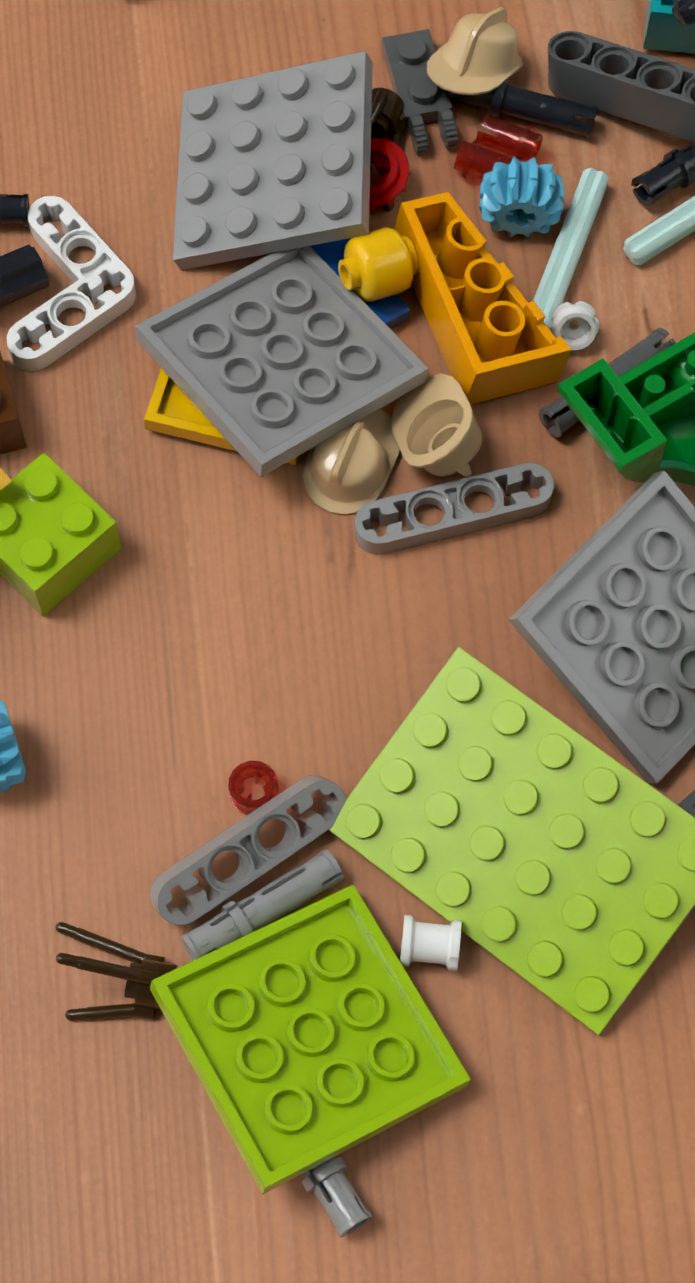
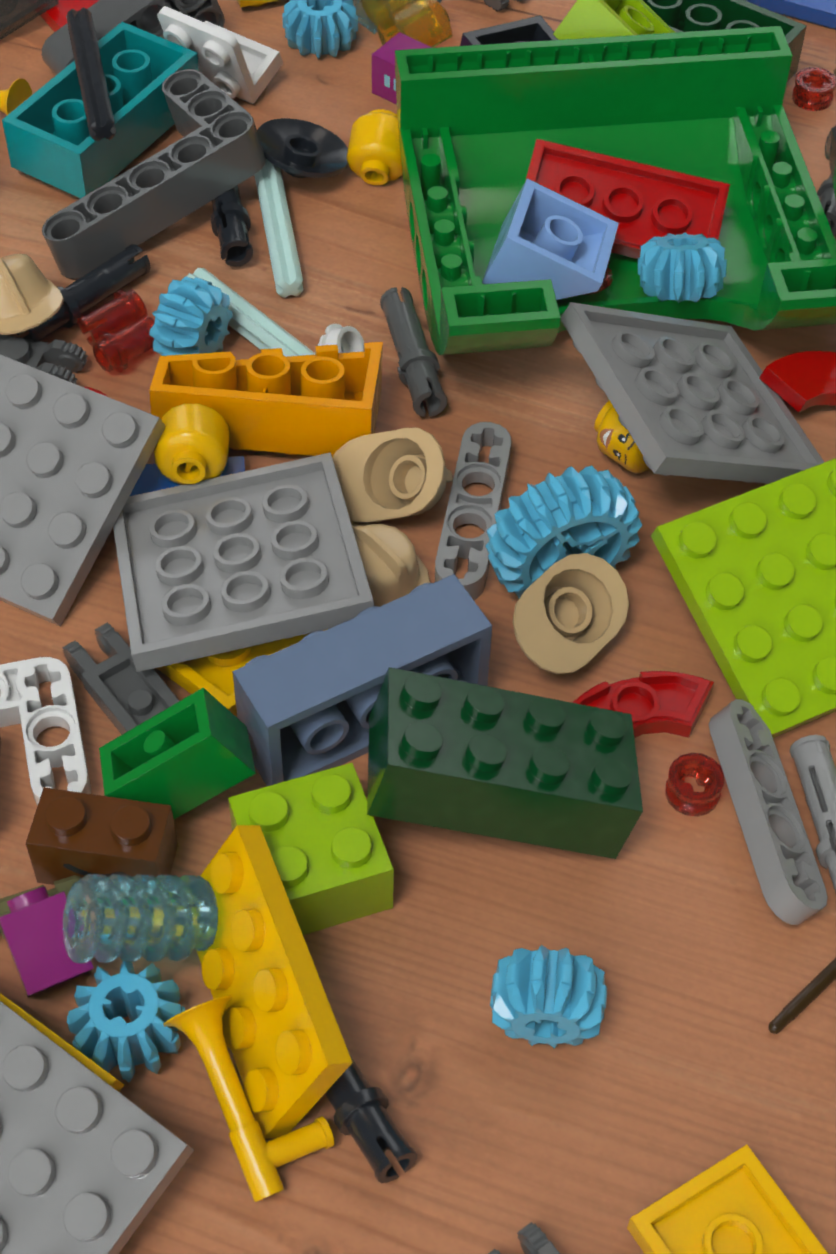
camera: 65 degrees left, 15 degrees down
(64, 404) = (179, 755): none -> green brick
(120, 360) = (115, 685): none -> dark grey hinge
(166, 626) = (502, 764): none -> dark green brick
(201, 497) = (315, 698): none -> sand blue brick
(311, 714) = (655, 699): none -> red tile
(354, 621) = (570, 613): none -> tan piece
(433, 582) = (562, 518): none -> medium azure gear

